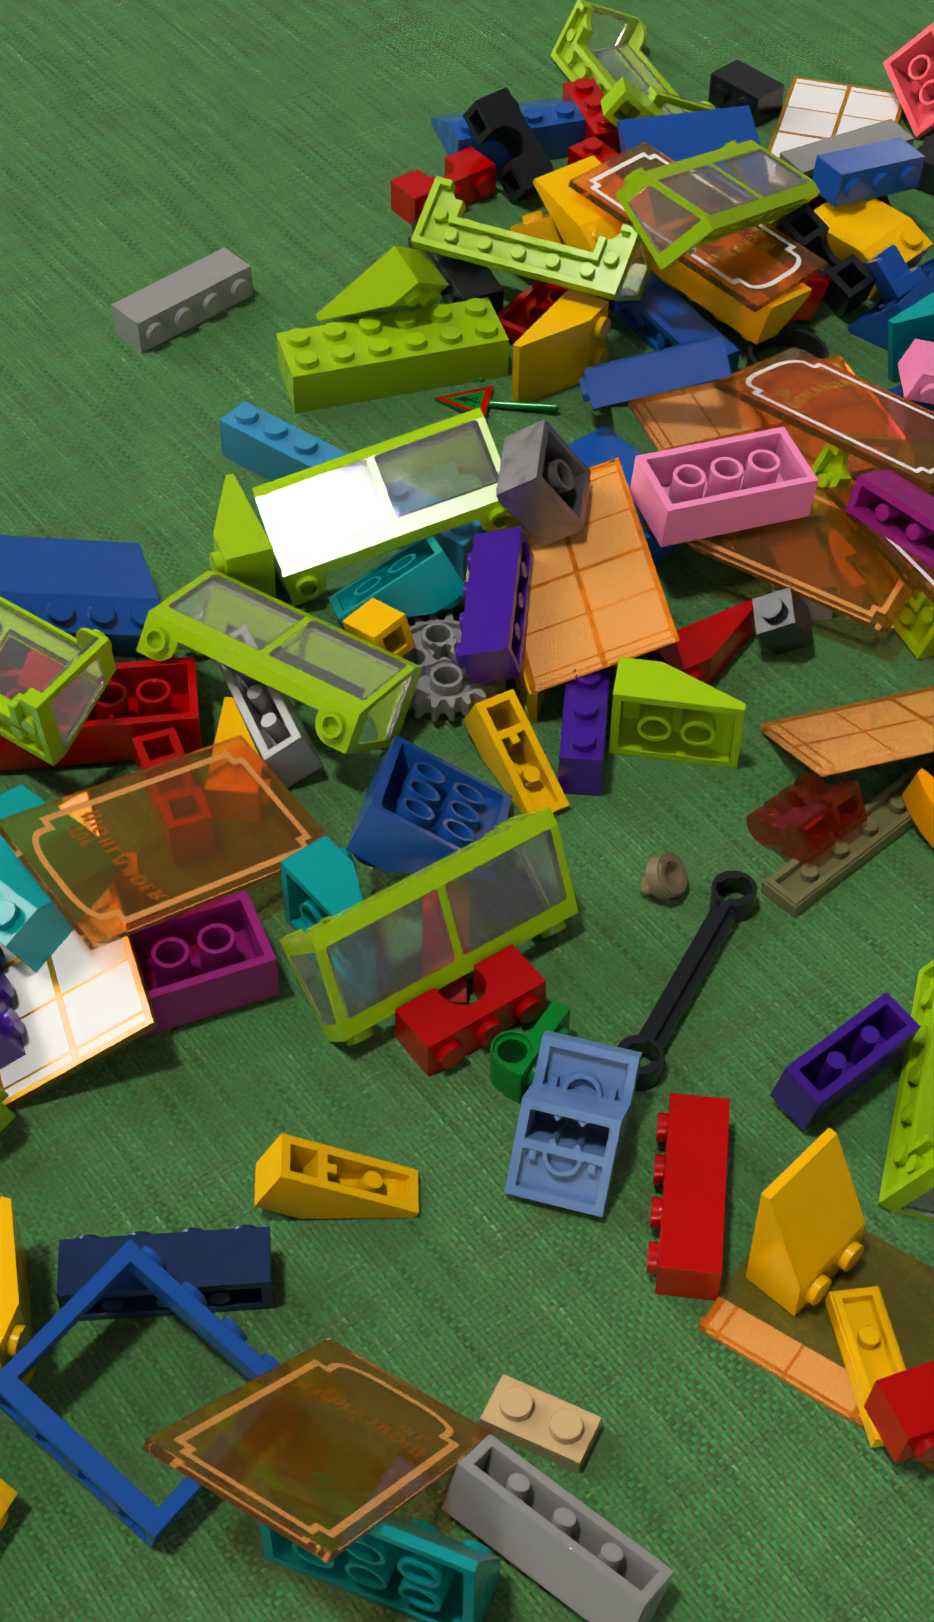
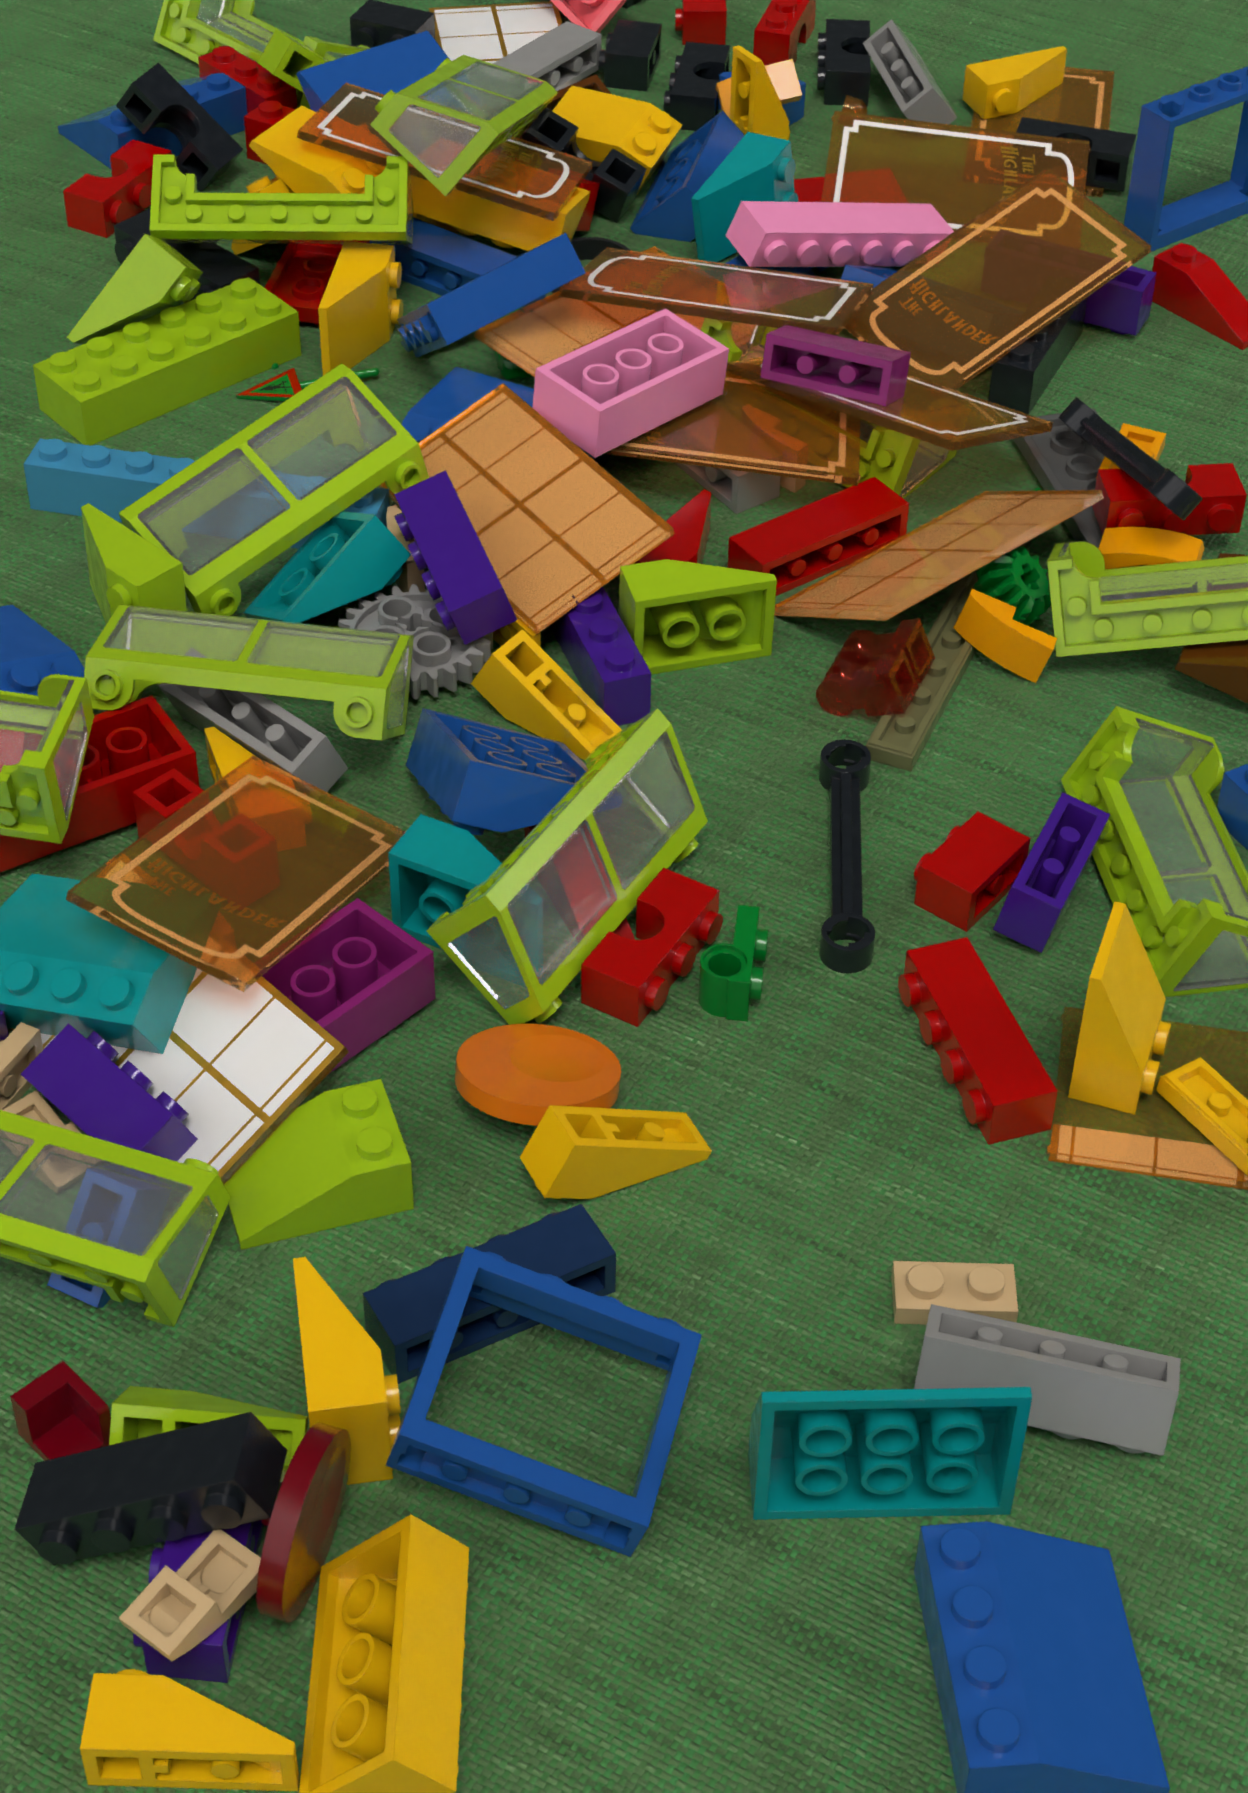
camera: 25 degrees left, 5 degrees down
(106, 1115) = (323, 1169): none -> lime slope
(311, 1092) = (527, 1067): none -> orange piece
(319, 1447) = (795, 1356): clear orange piece -> none
(381, 627) = (341, 608): yellow brick -> none
(543, 483) = (447, 421): flat silver brick -> none
(573, 1123) = (828, 1009): medium blue bracket -> none
(664, 877) = (770, 768): dark tan tile -> none
(778, 1031) = (970, 870): none -> red brick
(782, 621) = (743, 498): black brick -> none
(832, 672) = (821, 535): none -> red brick
(868, 171) = (589, 65): blue brick -> none
(893, 274) = (661, 164): blue panel -> none

